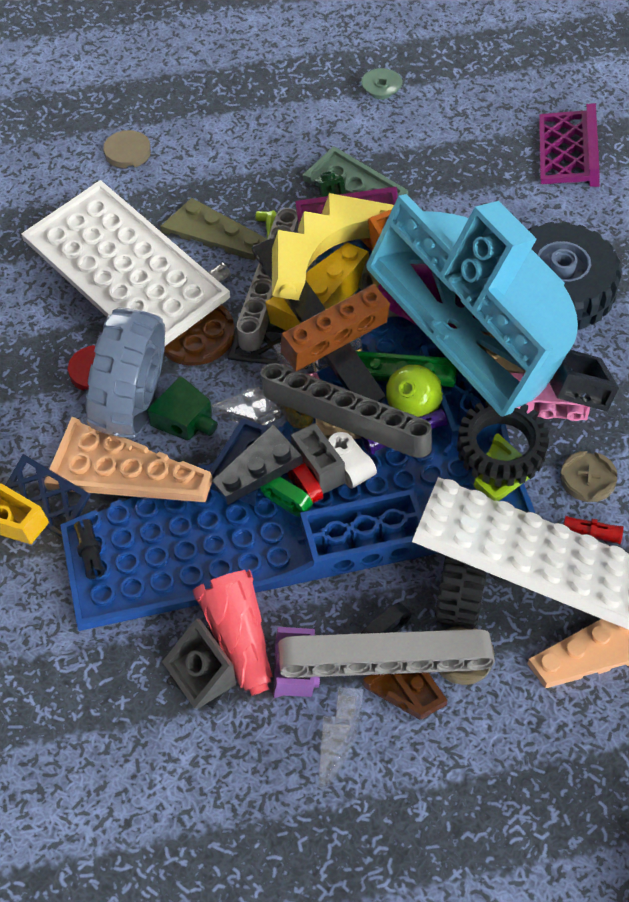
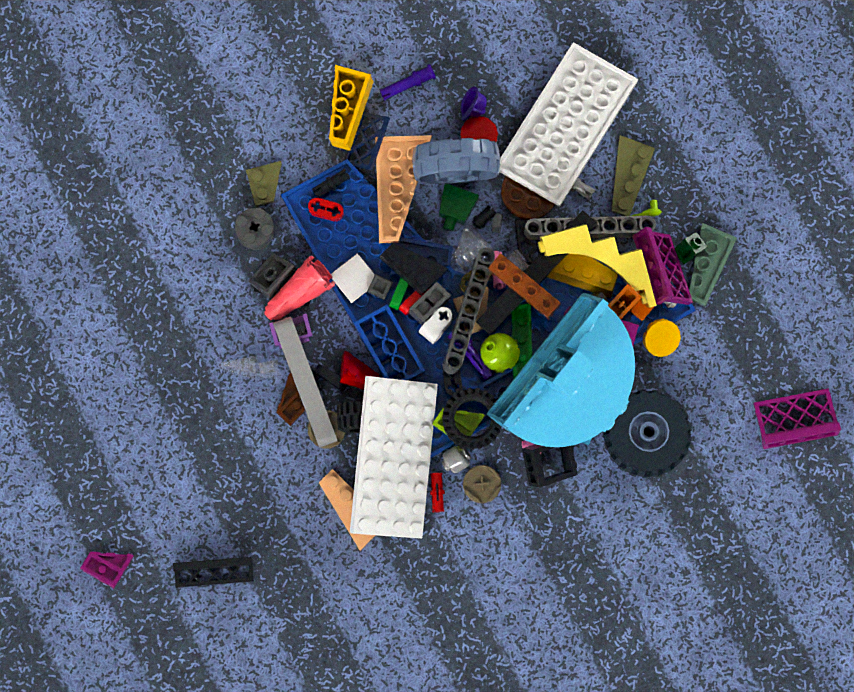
camera: 70 degrees right, 25 degrees up
(47, 649) = (264, 182): none -> olive wing
(48, 357) = (473, 104): none -> dark purple piece
(115, 673) = (261, 220): none -> dark grey brick
(122, 563) = (327, 205): none -> red beam
(127, 149) = (694, 83): dark tan tile -> none
(212, 388) = (480, 220): none -> black pin
(225, 372) = (497, 222): none -> dark grey tile
(245, 551) = (353, 278): none -> white sticker
(269, 521) = (379, 287): none -> dark grey tile
(381, 83) = (823, 247): sand green piece -> none
(390, 587) = (354, 371): none -> red wing
(432, 465) = (447, 379): none -> black beam
(548, 493) = (456, 459): none -> light grey head

